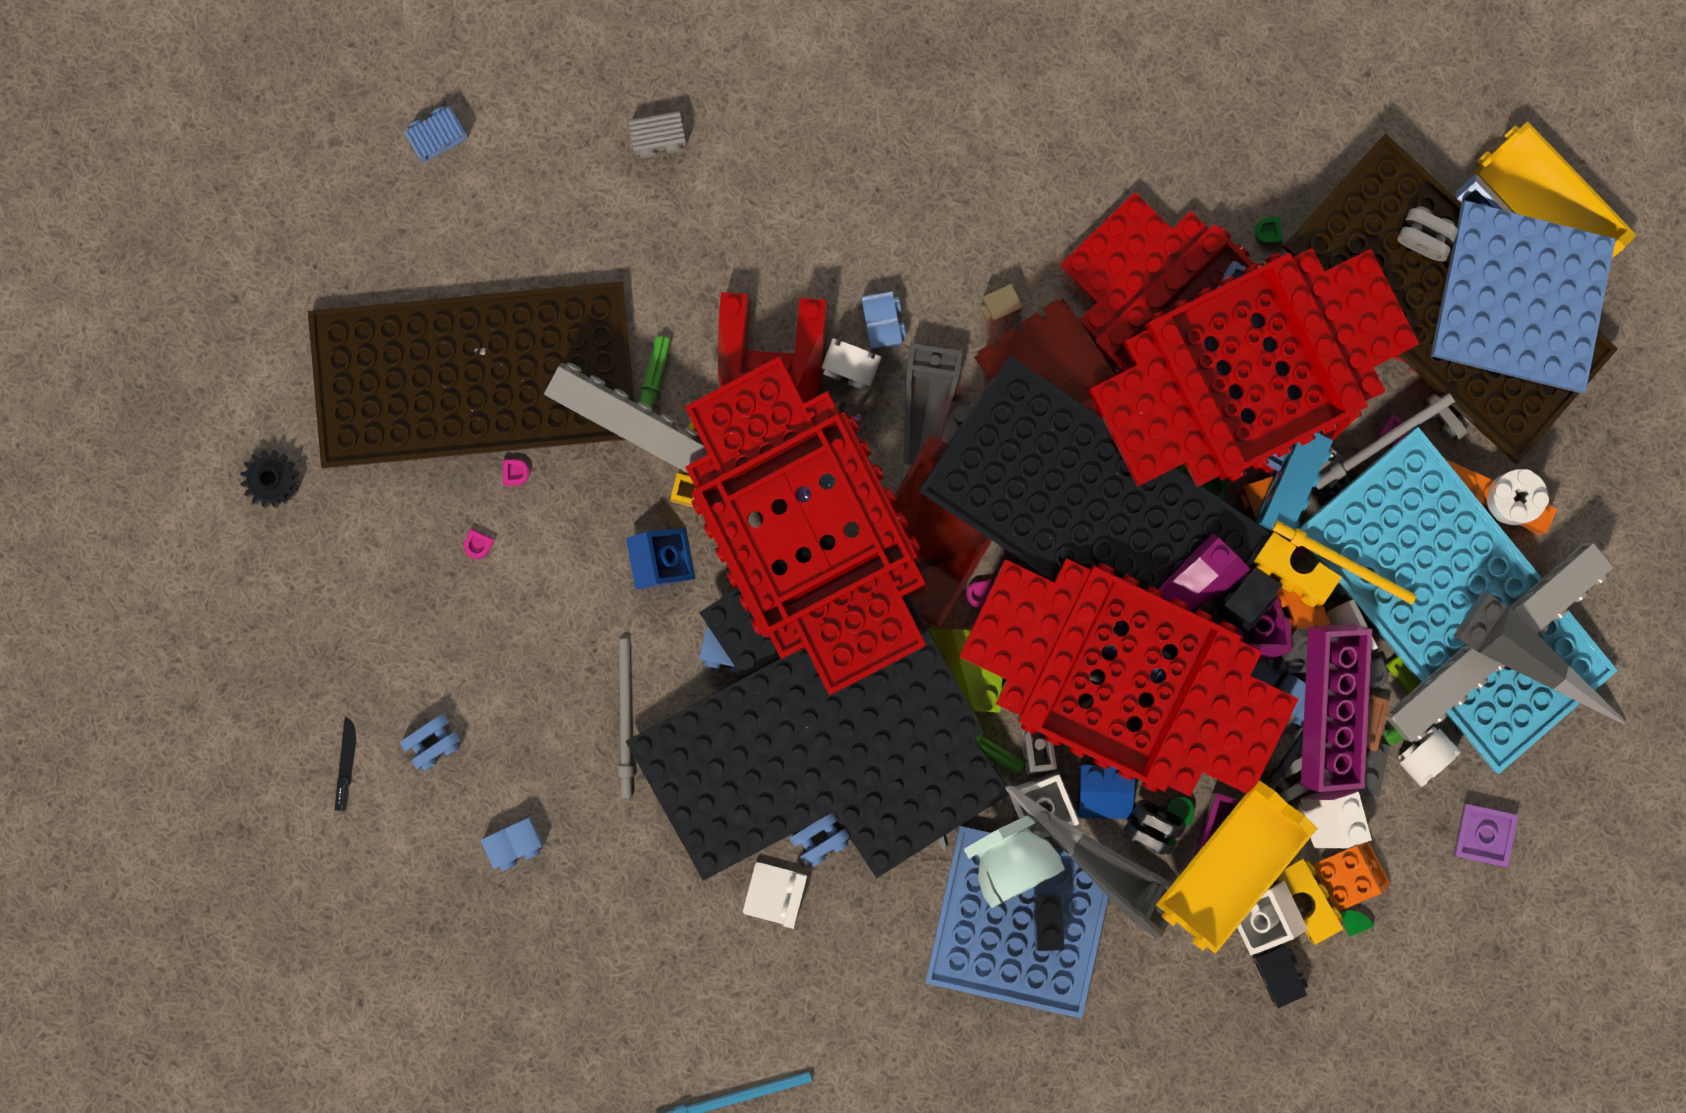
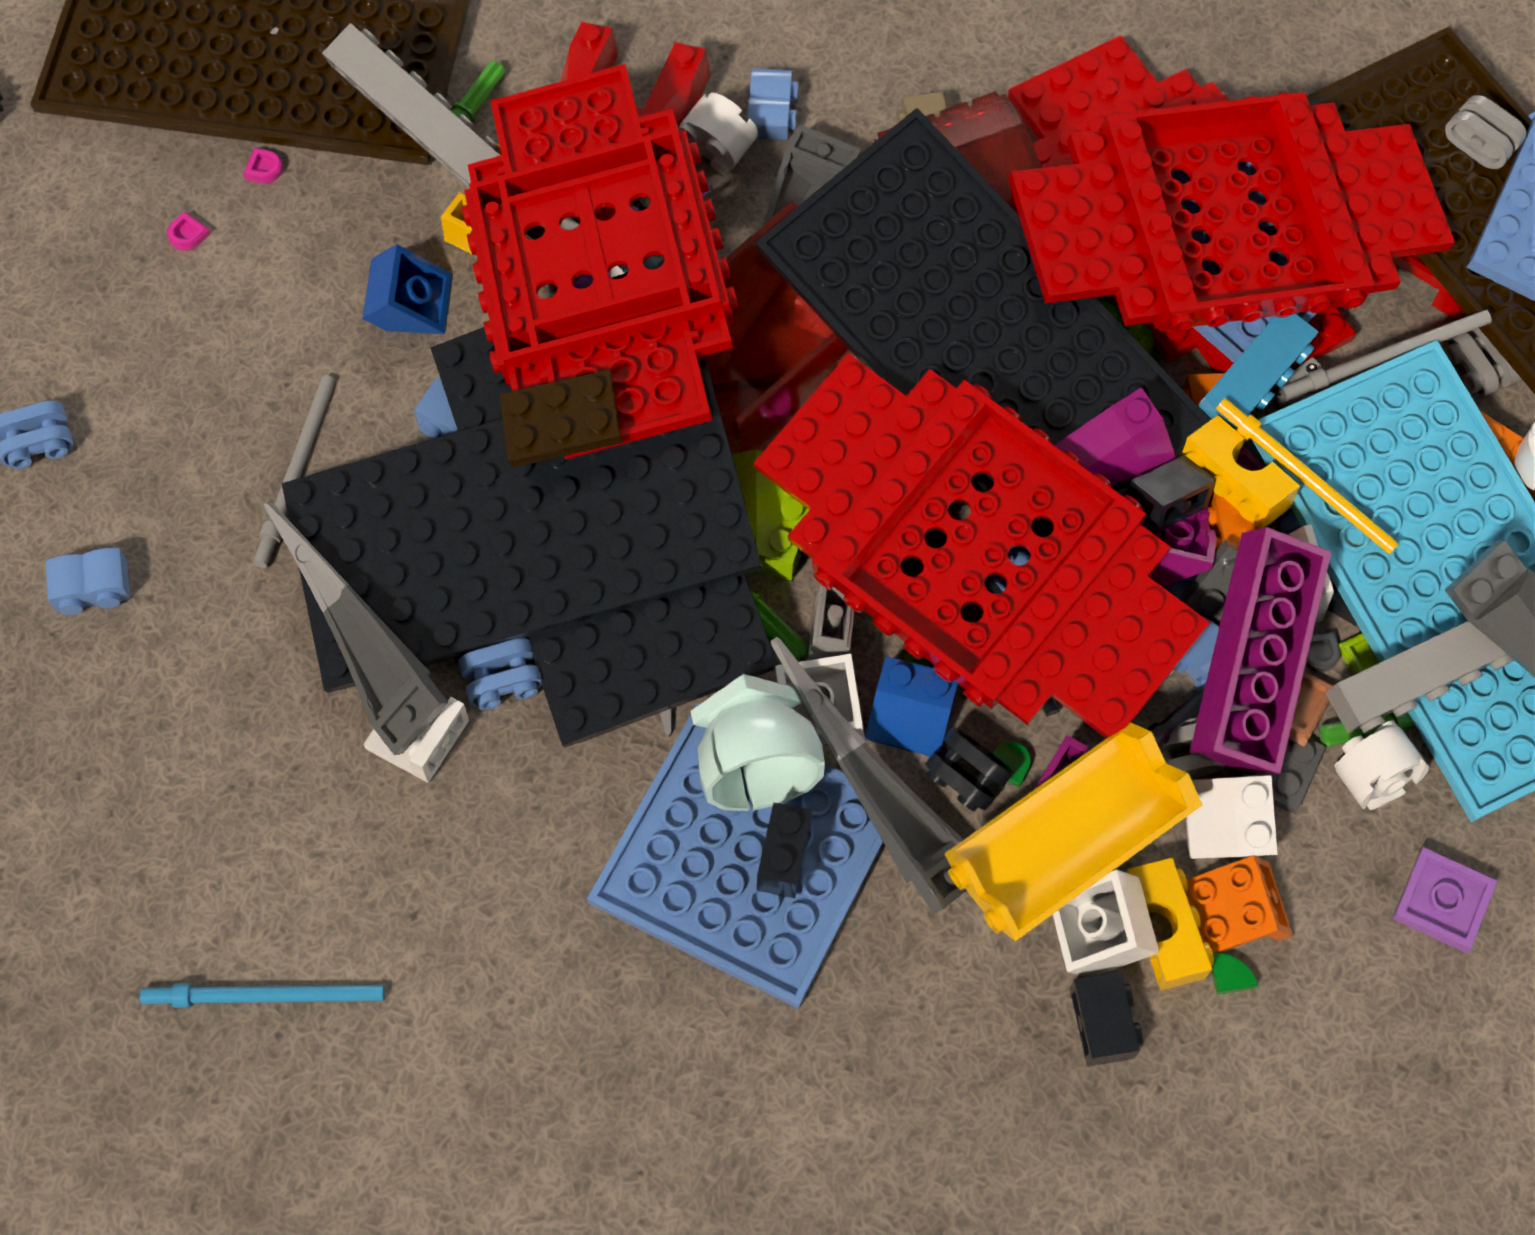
camera: 15 degrees right, 20 degrees down
(748, 869) = (386, 673): none -> dark grey plate
(821, 672) = (560, 418): none -> dark brown plate

